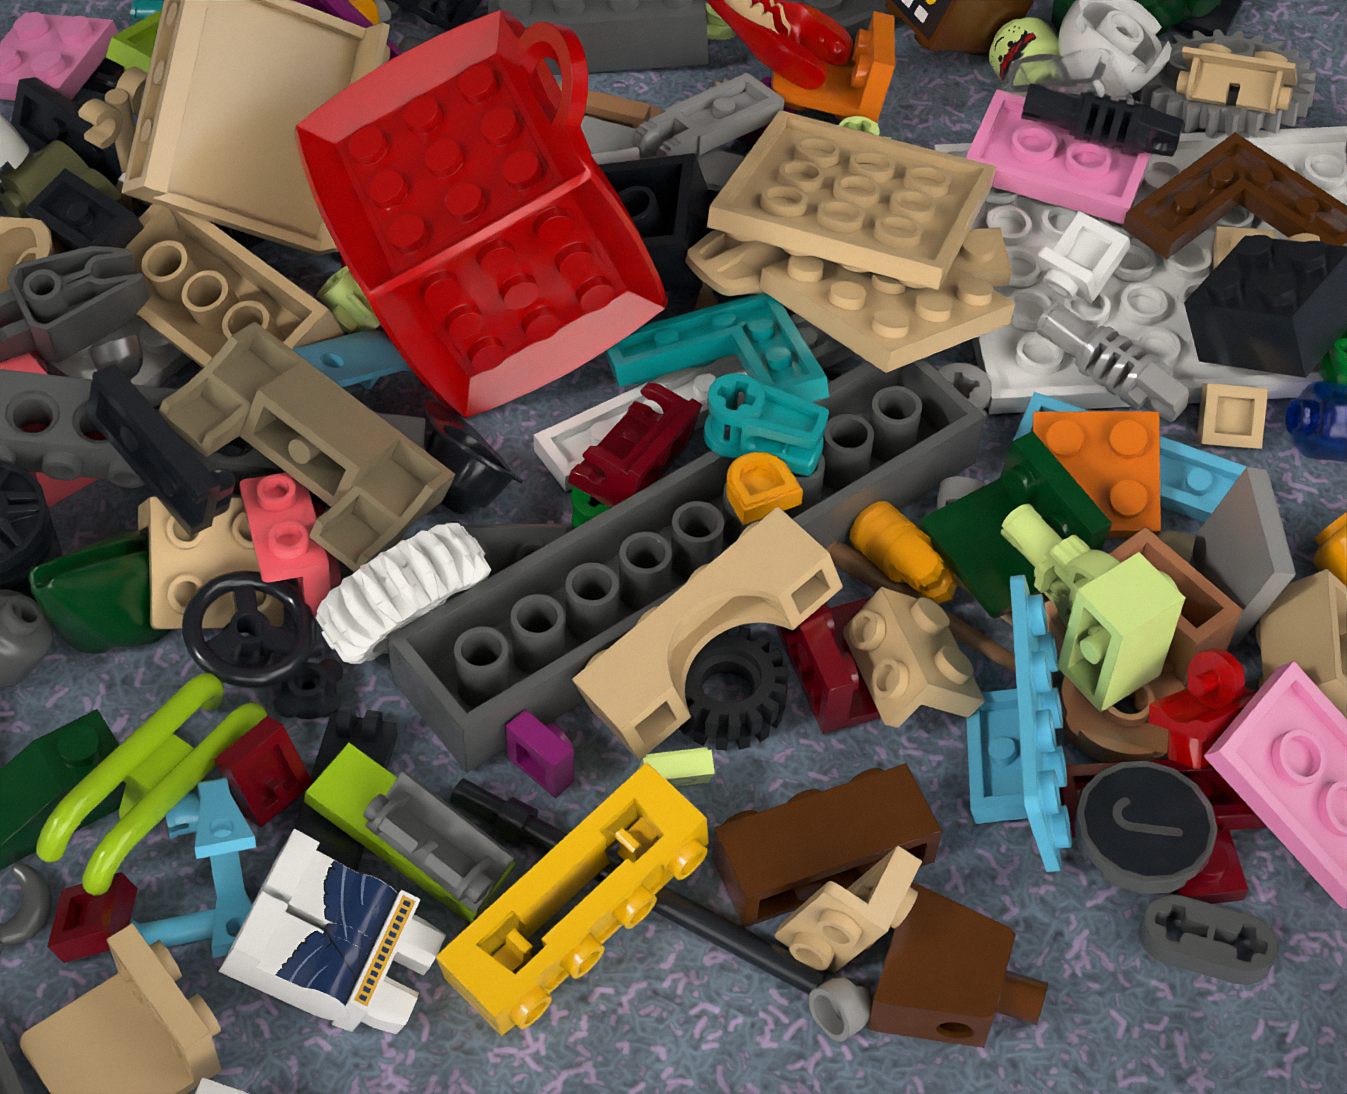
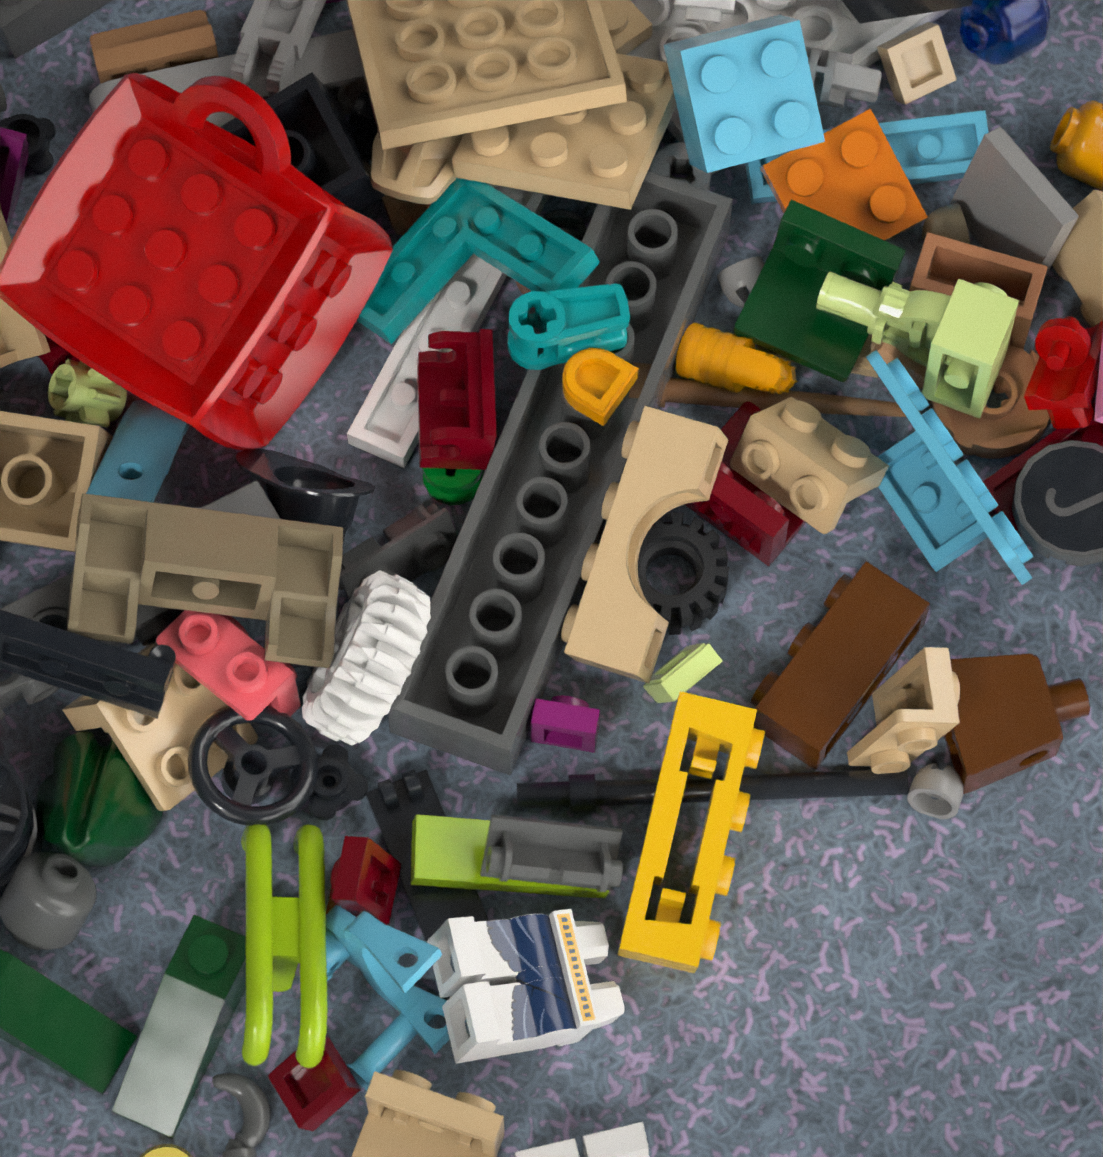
camera: 30 degrees left, 15 degrees up
(1049, 335) = (744, 93): none -> medium azure brick

